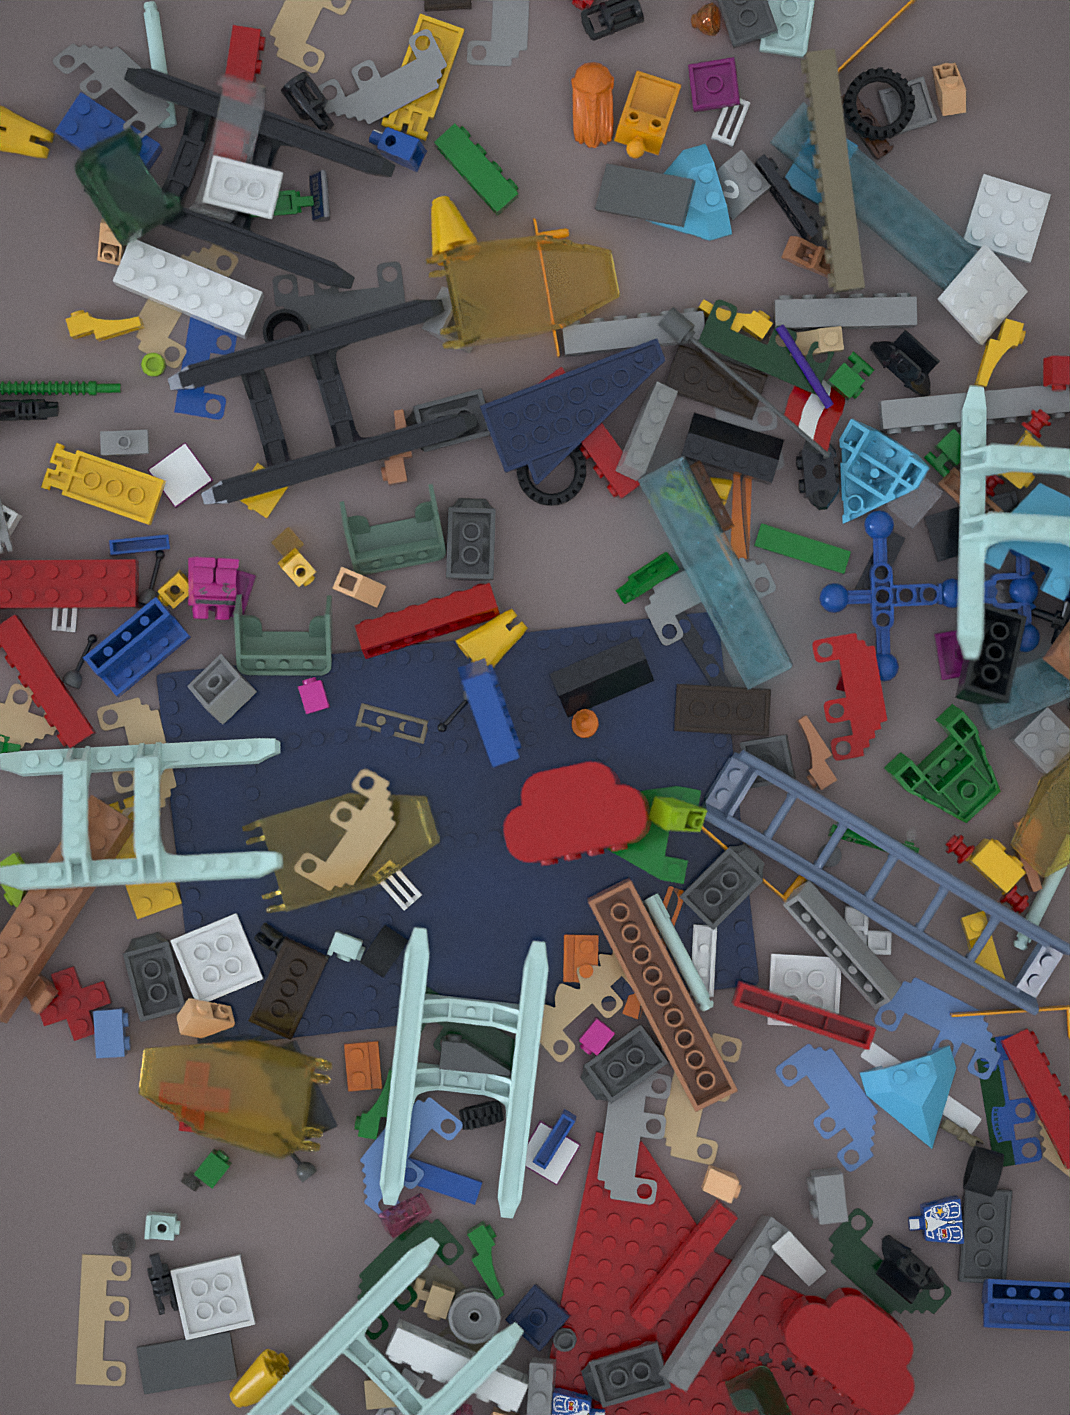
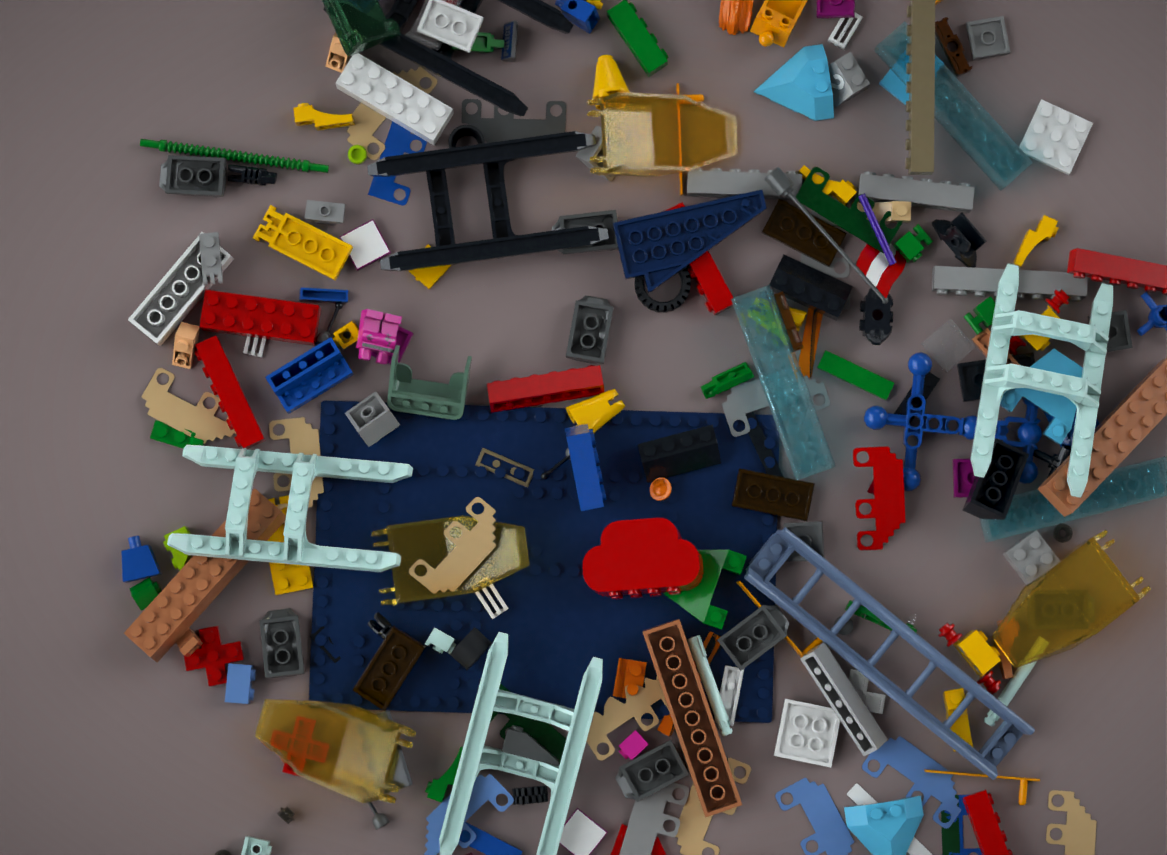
camera: 10 degrees right, 5 degrees down
(73, 677) = (254, 393): hinge -> none
(204, 1018) = (317, 682): light nougat slope -> none
(213, 1167) = (305, 806): green brick -> none
(217, 959) = (334, 636): white plate -> none
(287, 541) = (442, 311): clear yellow tile -> none
(294, 561) = (445, 325): yellow brick -> none
(313, 695) = (445, 435): dark pink brick -> none
(359, 587) = (494, 353): light nougat slope -> none
(363, 1066) = (440, 741): orange plate -> none
(394, 468) = (537, 263): nougat slope -> none
(396, 542) = (529, 323): sand green windscreen -> none
(554, 1139) = (587, 824): blue piece -> none
(645, 195) = (768, 76): dark grey tile -> none
(646, 431) = (743, 262): light grey brick -> none
(677, 815) = (724, 571): lime slope -> none
(789, 204) = (883, 101): black plate -> none
(803, 1015) = (804, 751): red brick -> none
(806, 255) = (891, 143): nougat slope -> none
(819, 772) = (844, 558): nougat slope -> none
(875, 469) = (922, 320): medium azure wedge -> none
(885, 76) = (964, 9): black tyre -> none
(949, 89) = (1023, 29): light nougat slope -> none
(954, 773) = (955, 573): green wedge -> none
(982, 295) = (1027, 193): white plate -> none

